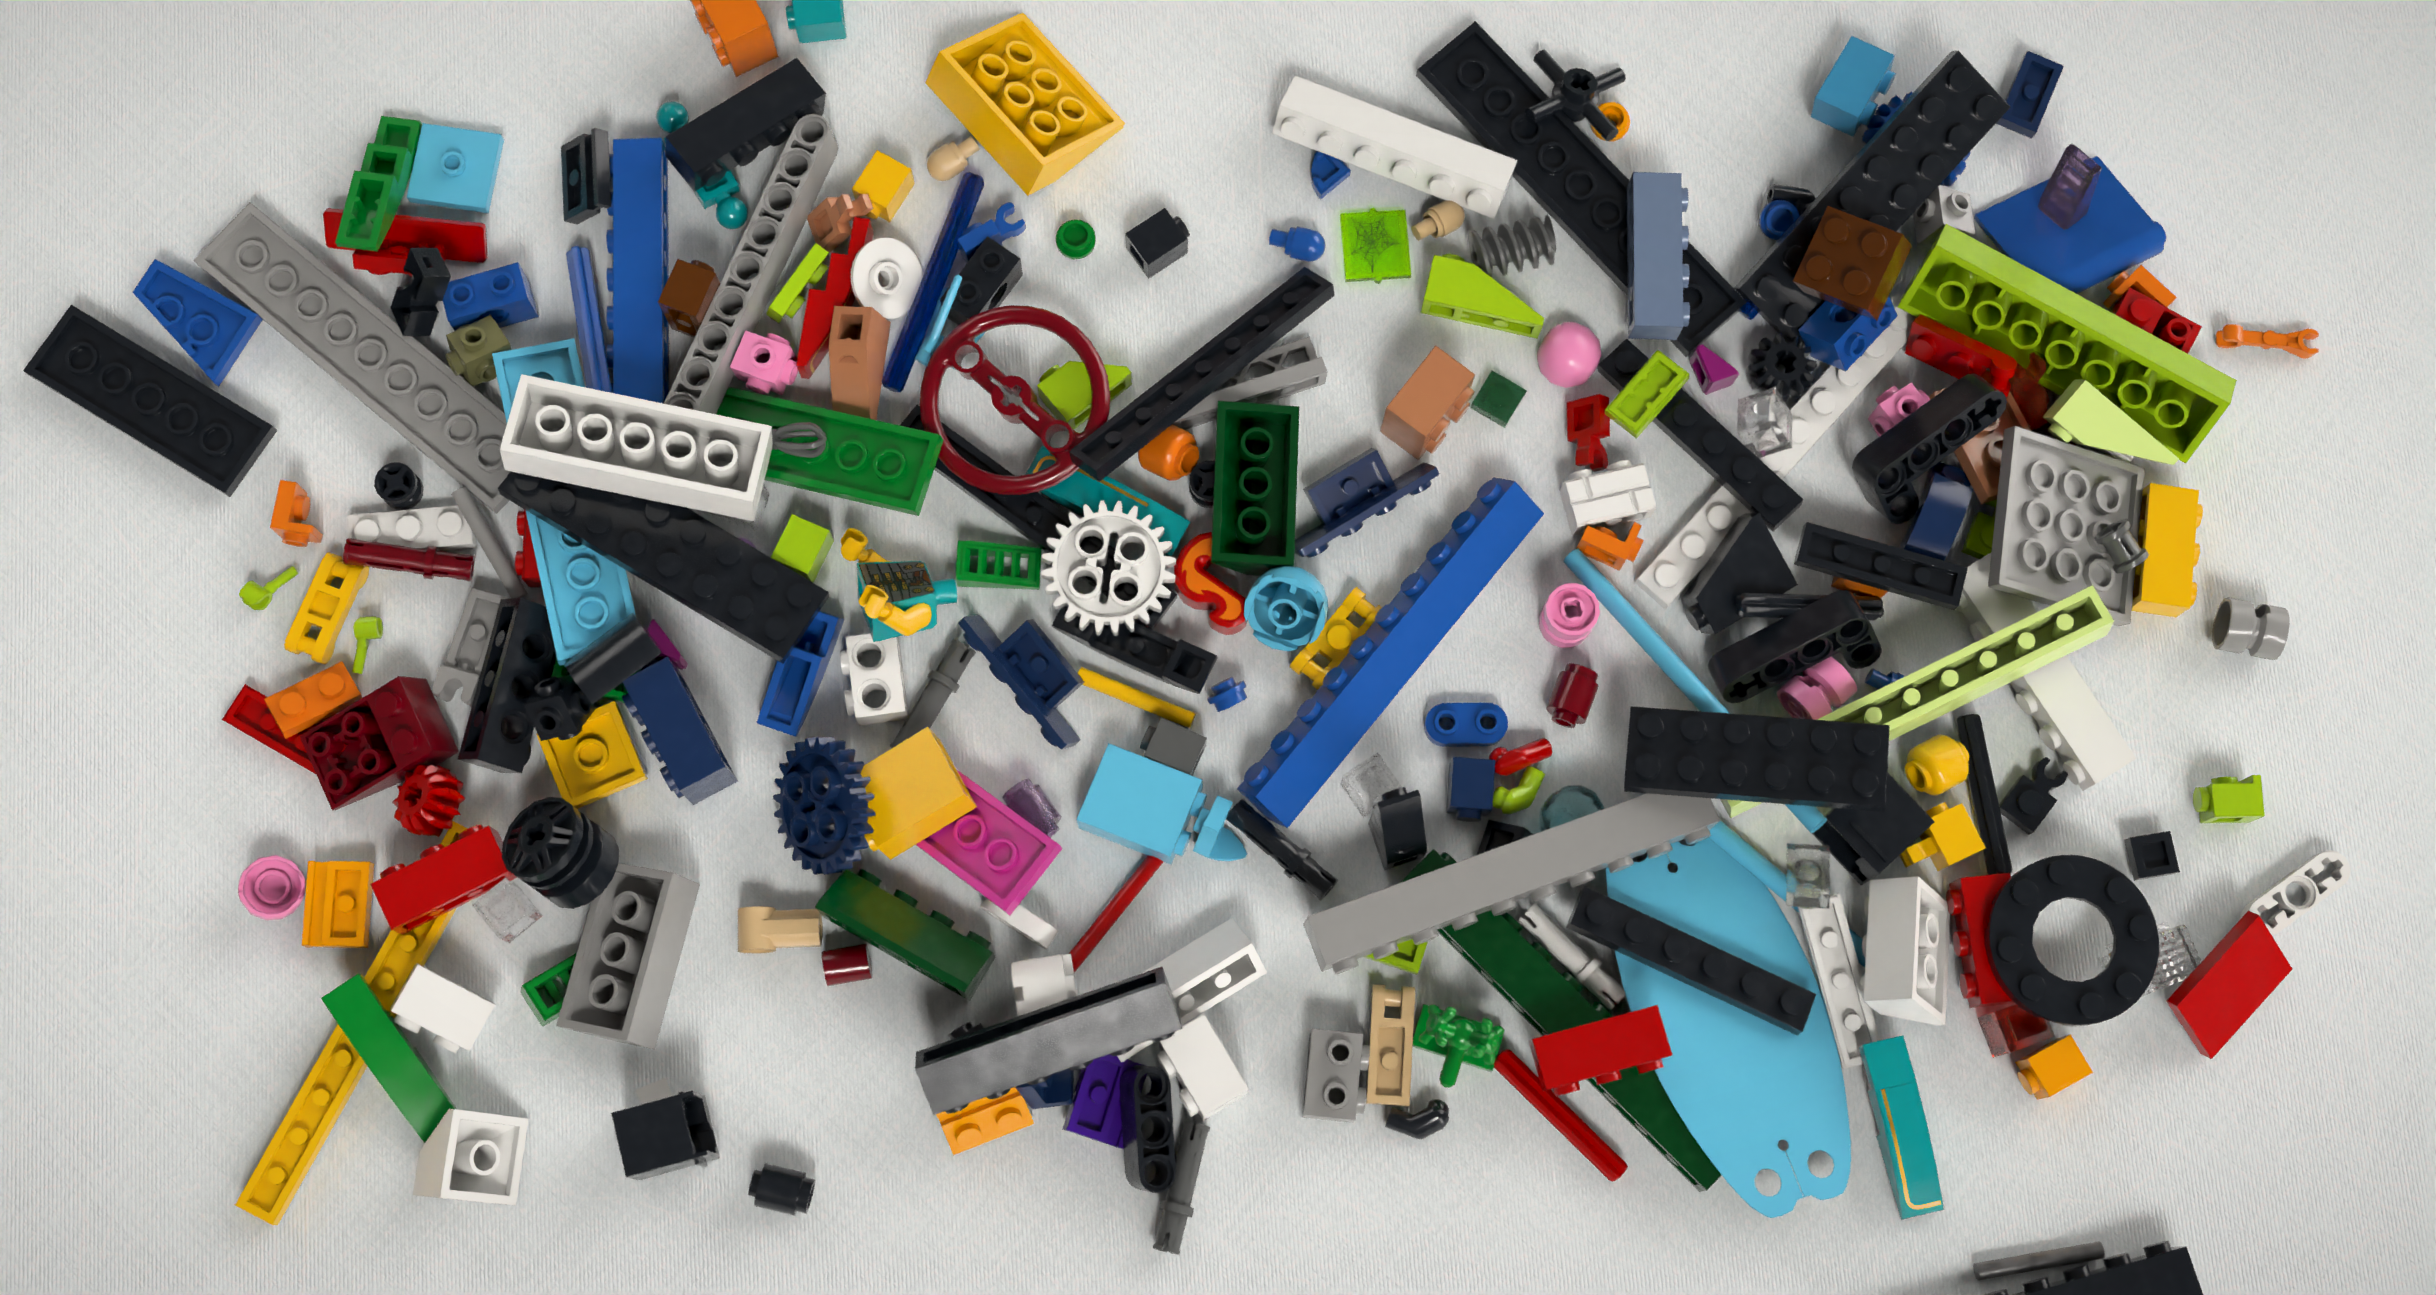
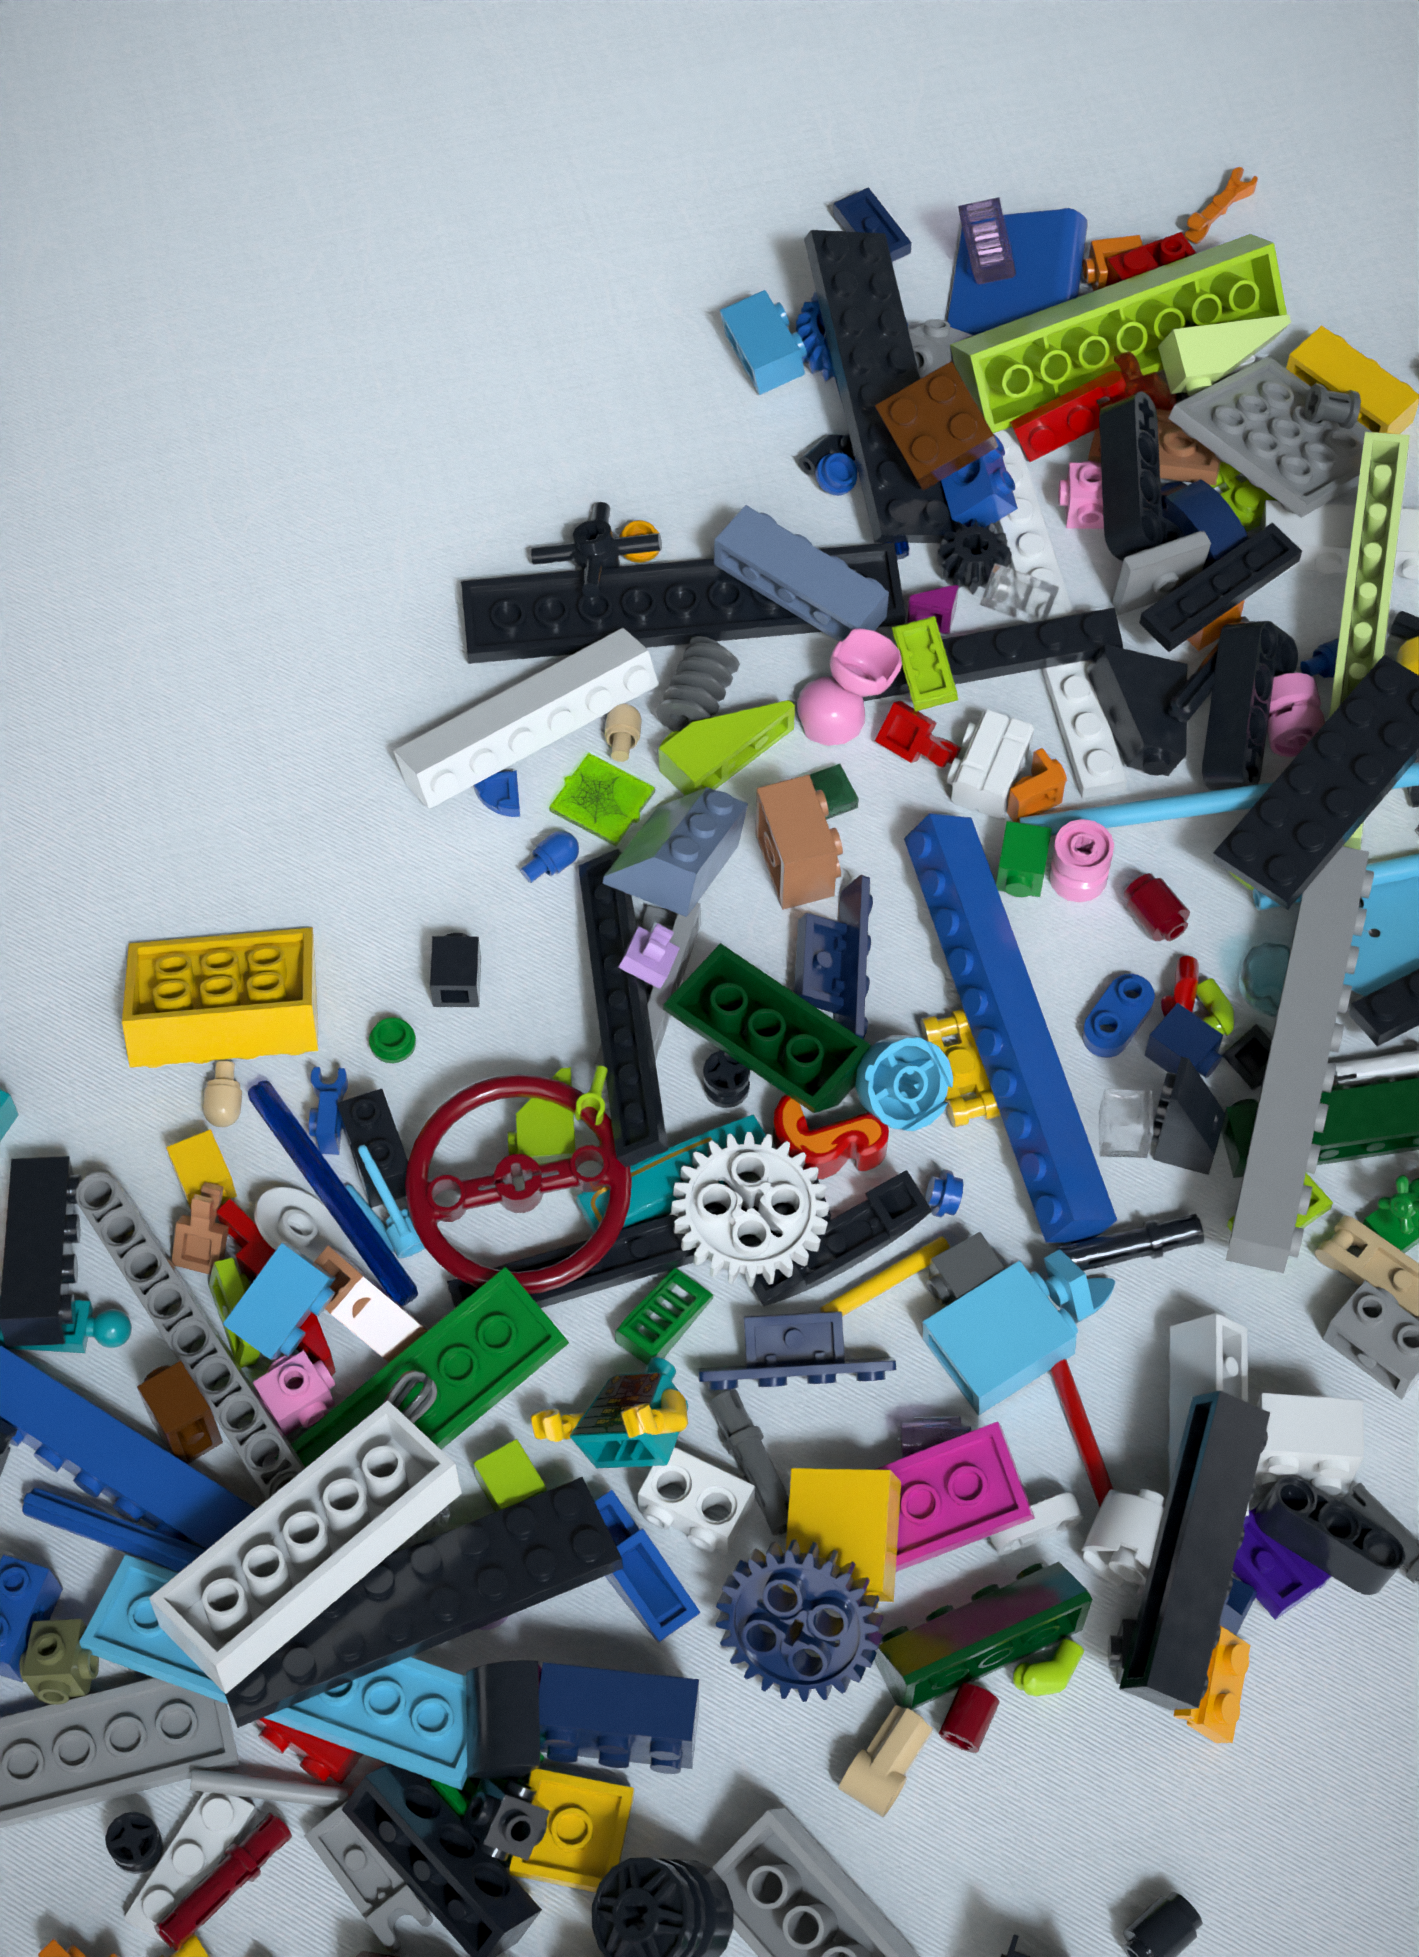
camera: 50 degrees left, 15 degrees down
(804, 306) = (280, 1302): none -> dark azure brick
(916, 1000) = (1049, 1676): none -> lime arm
(1107, 403) = (594, 1095): none -> lime hand
(1170, 454) = (679, 1087): orange head -> none
(1250, 365) = (650, 955): none -> lavender tile
(1359, 328) = (680, 850): none -> sand blue slope
(1540, 573) = (1023, 859): none -> green brick
(1612, 350) = (865, 662): none -> bright pink hair
(1865, 513) = (1159, 571): none -> light grey plate

